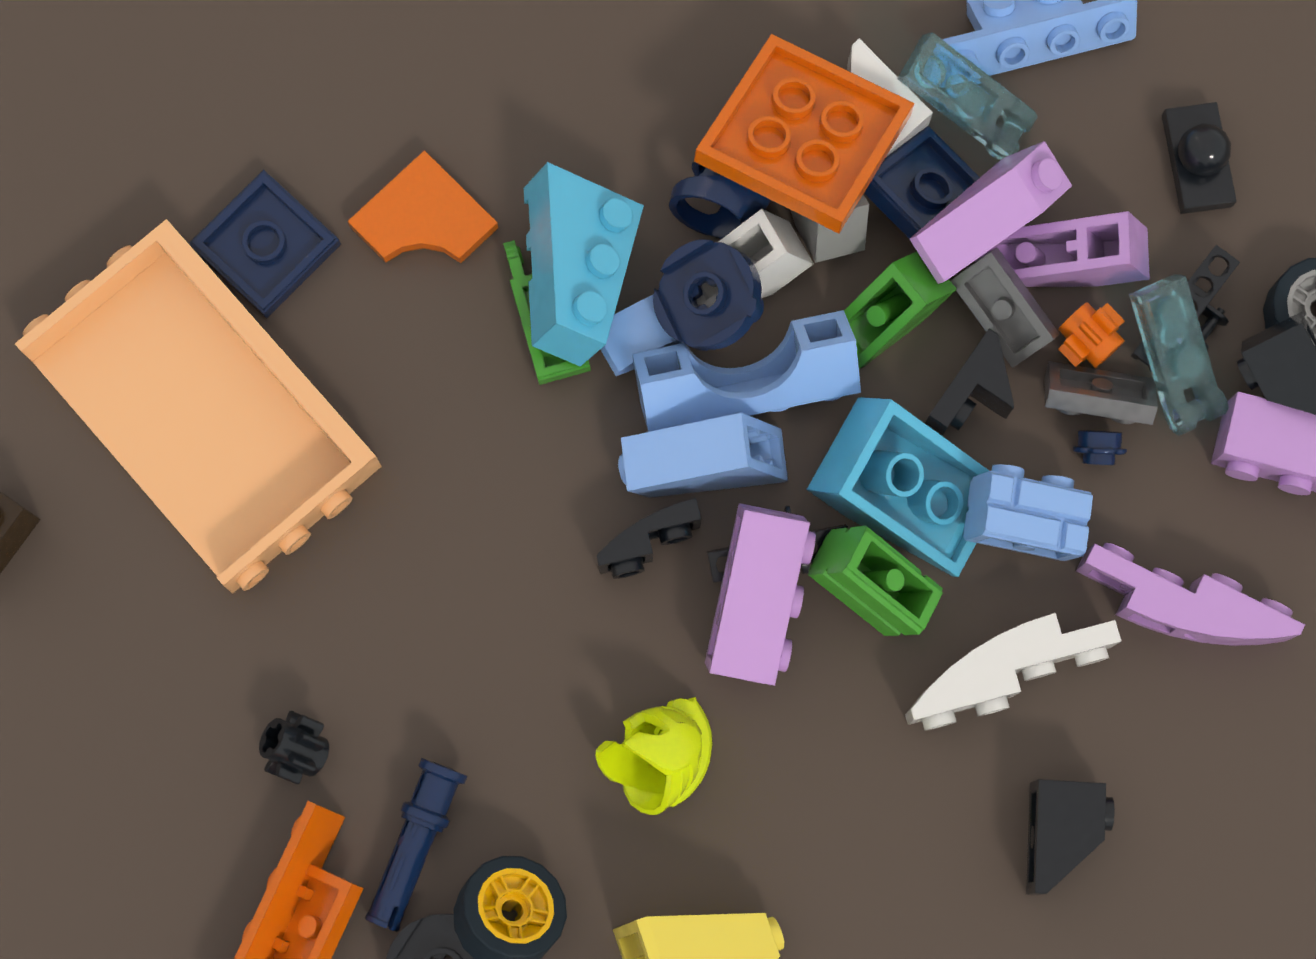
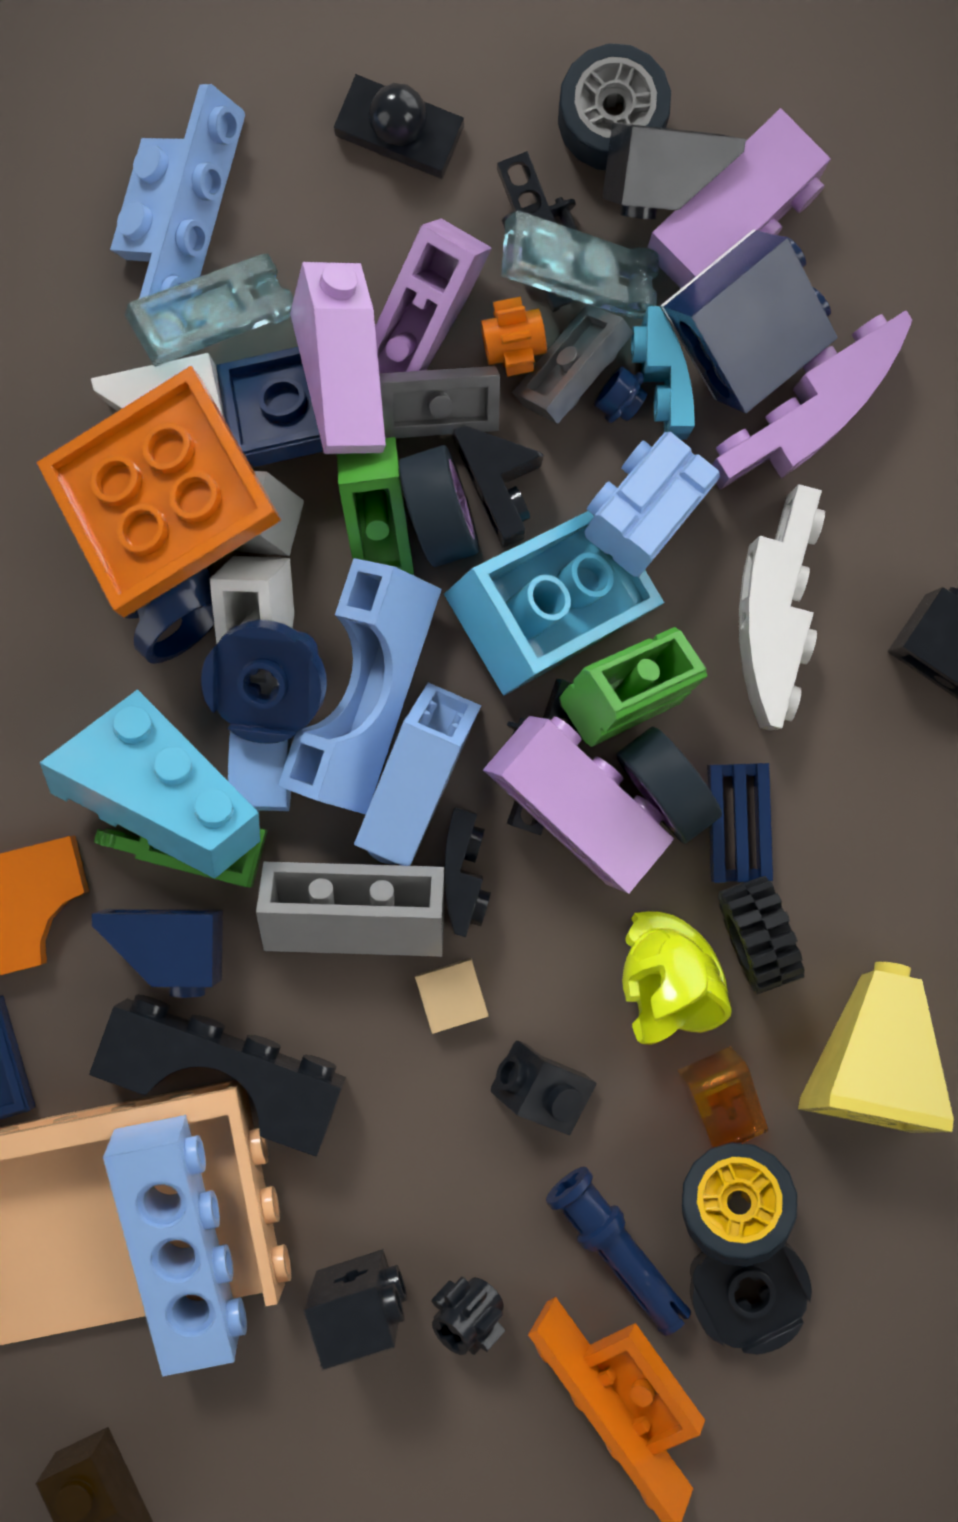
camera: 60 degrees left, 10 degrees up
(157, 524) = (183, 1330): none -> light blue brick
(254, 648) = (355, 1308): none -> black brick
(387, 508) = (289, 1094): none -> black arch
(456, 345) = (167, 946): none -> dark blue slope
(510, 704) = (542, 1088): none -> black bracket
(543, 589) = (451, 995): none -> tan tile
(568, 466) = (352, 908): none -> light grey brick
(586, 857) = (724, 1098): none -> clear orange slope
(738, 801) = (761, 934): none -> black tyre
(815, 658) = (669, 784): none -> black wheel
(858, 715) = (763, 832): none -> dark blue tile
(923, 351) = (438, 506): none -> black wheel
(1144, 460) = (663, 361): none -> medium azure slope
(1220, 507) = (751, 319): none -> piece

